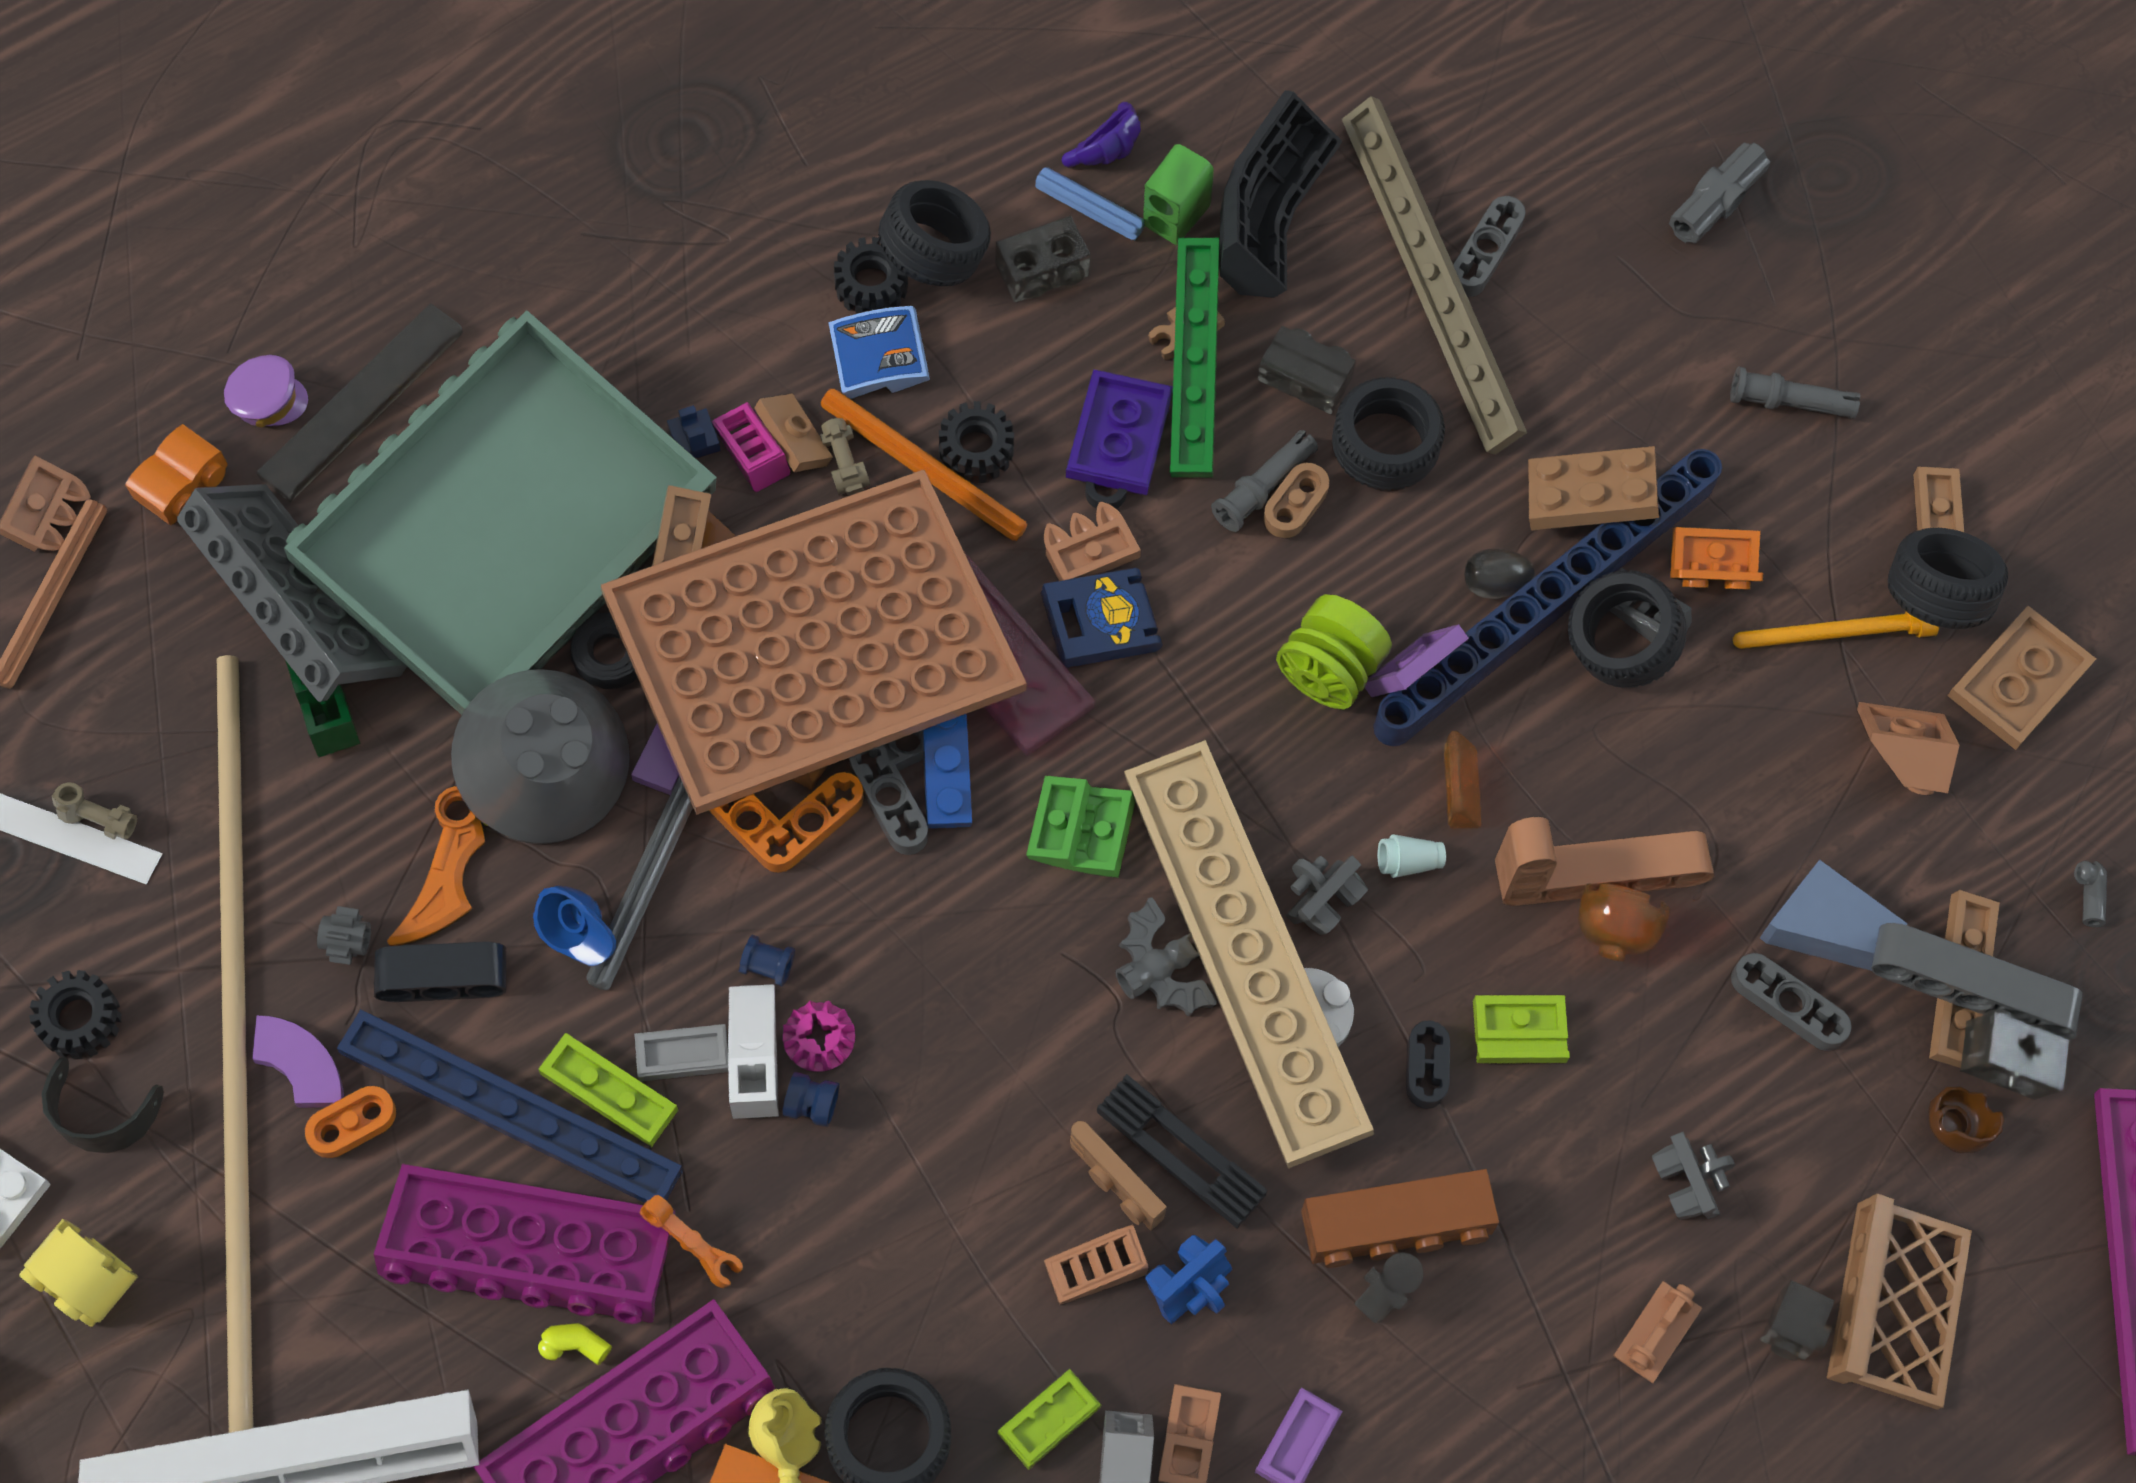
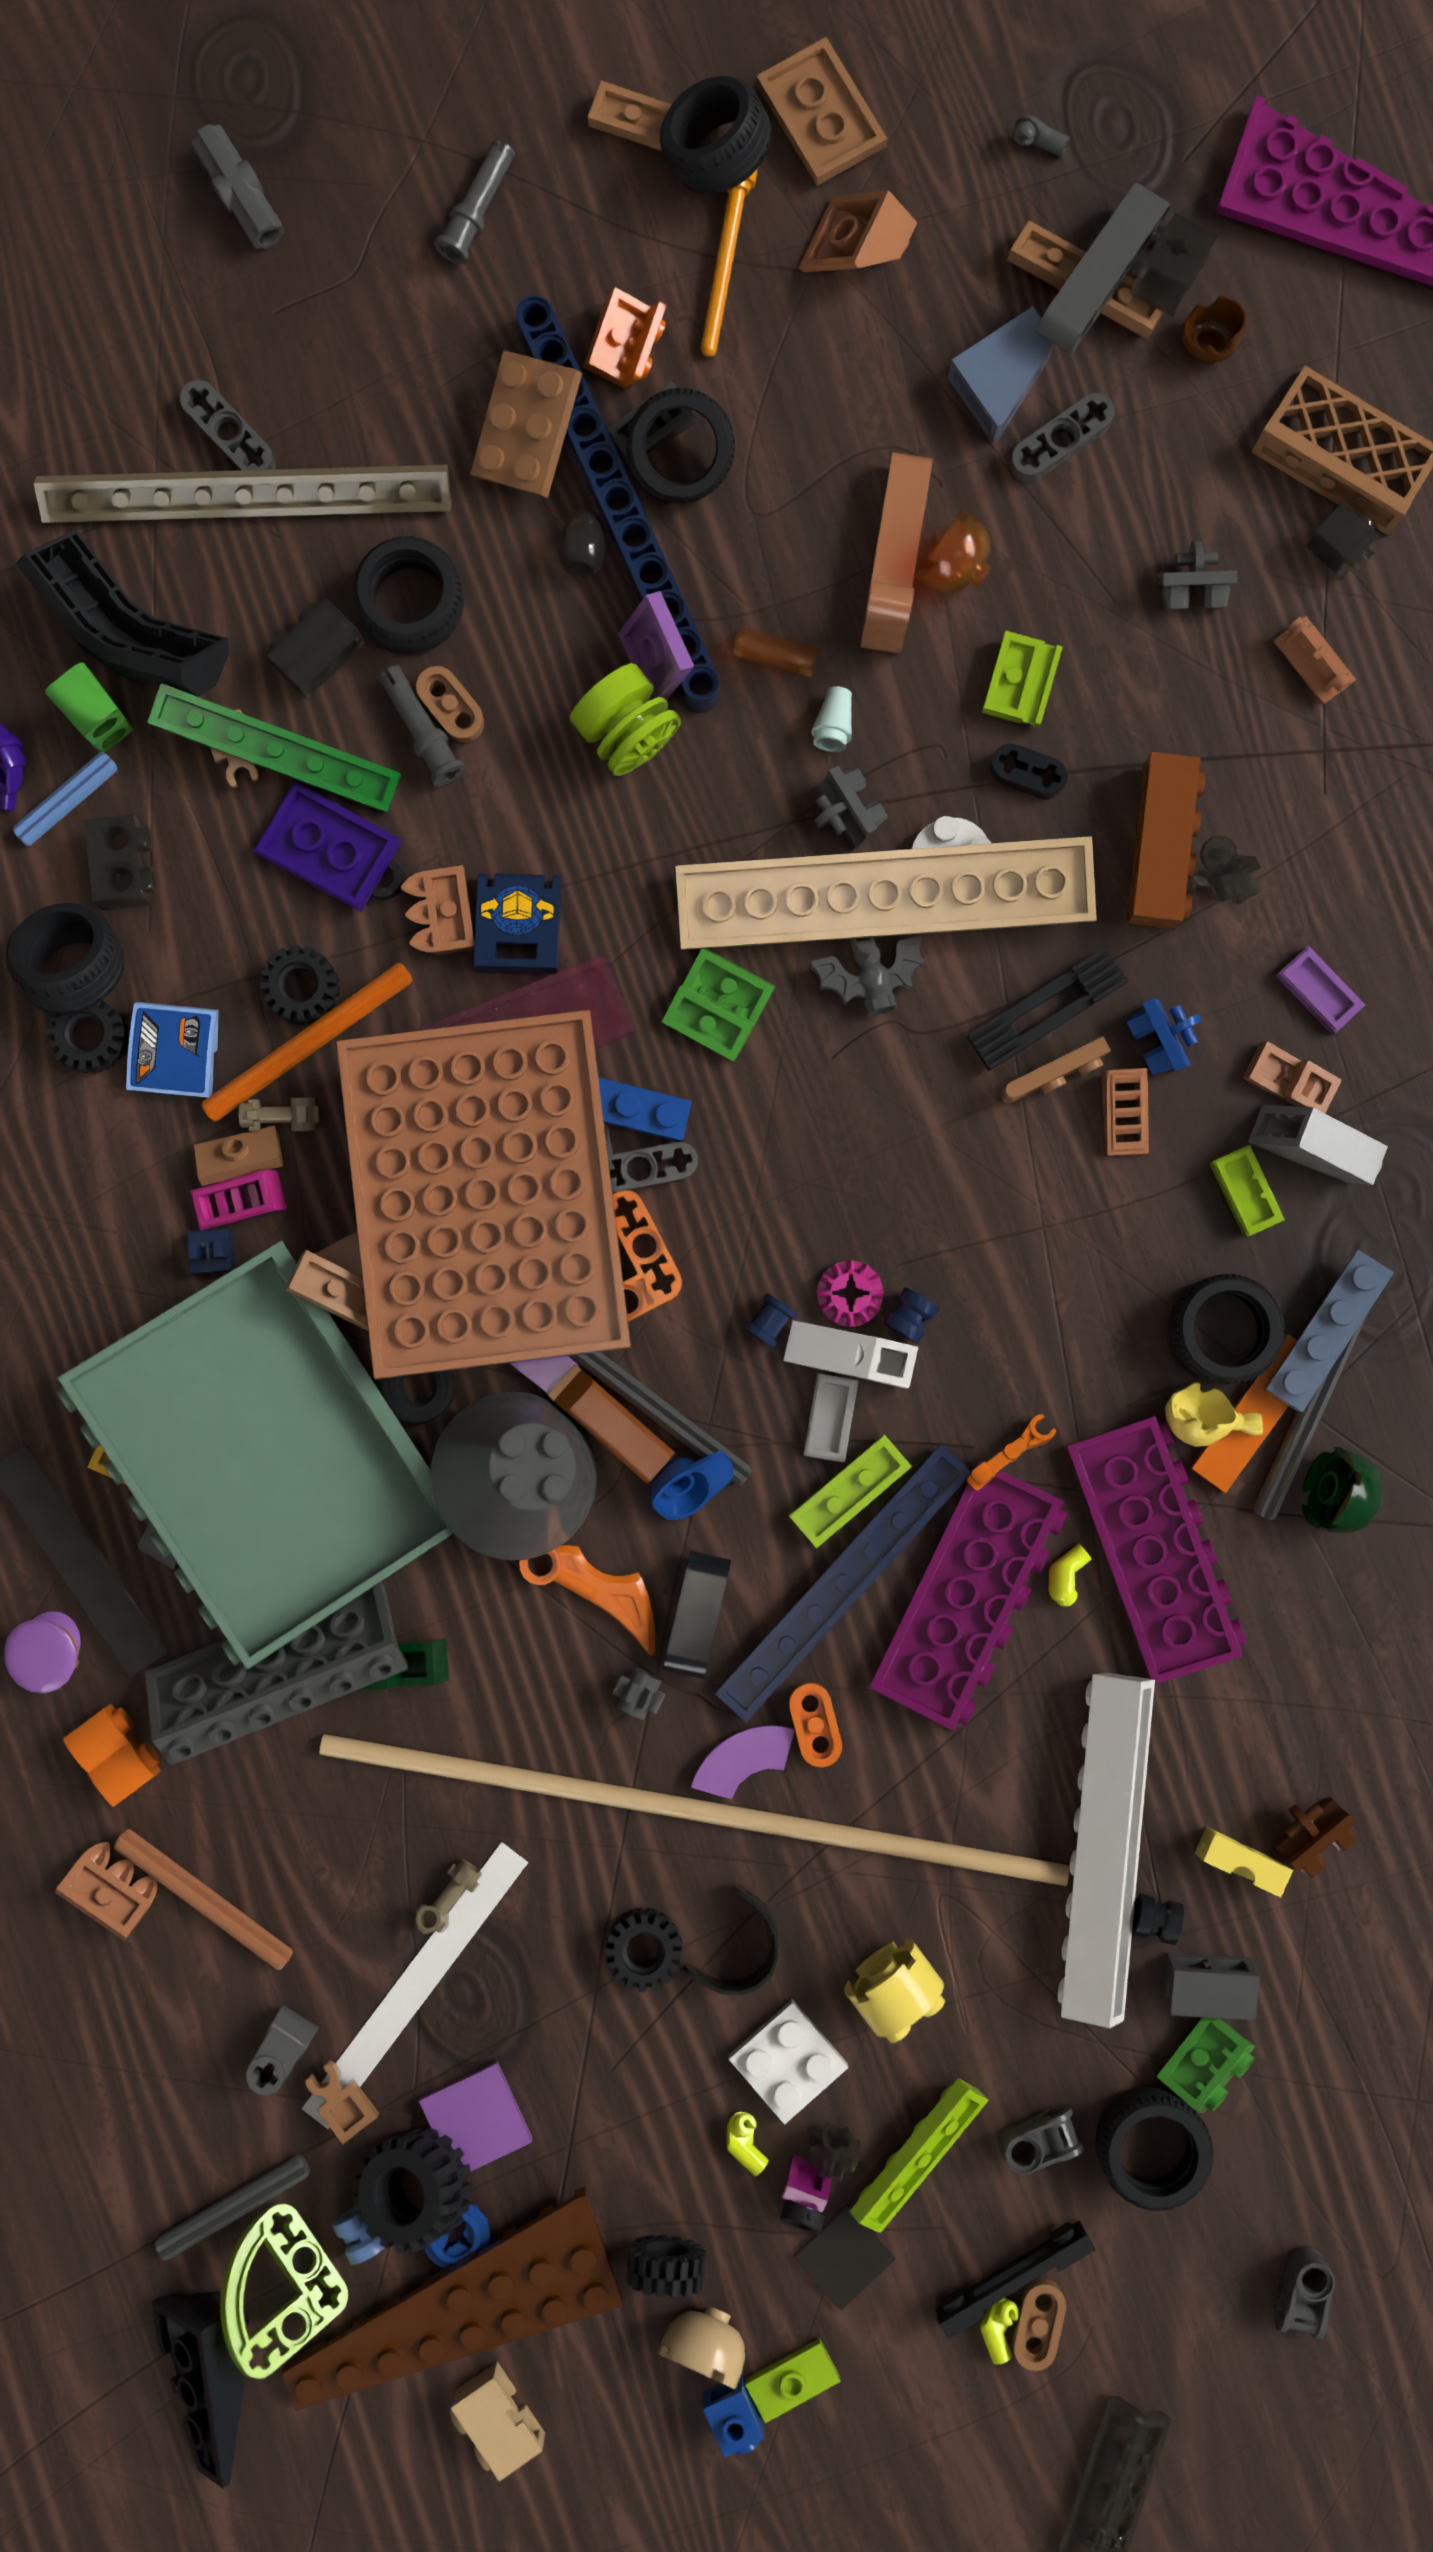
camera: 75 degrees left, 20 degrees up
(617, 836) = (611, 1424): none -> dark orange piece

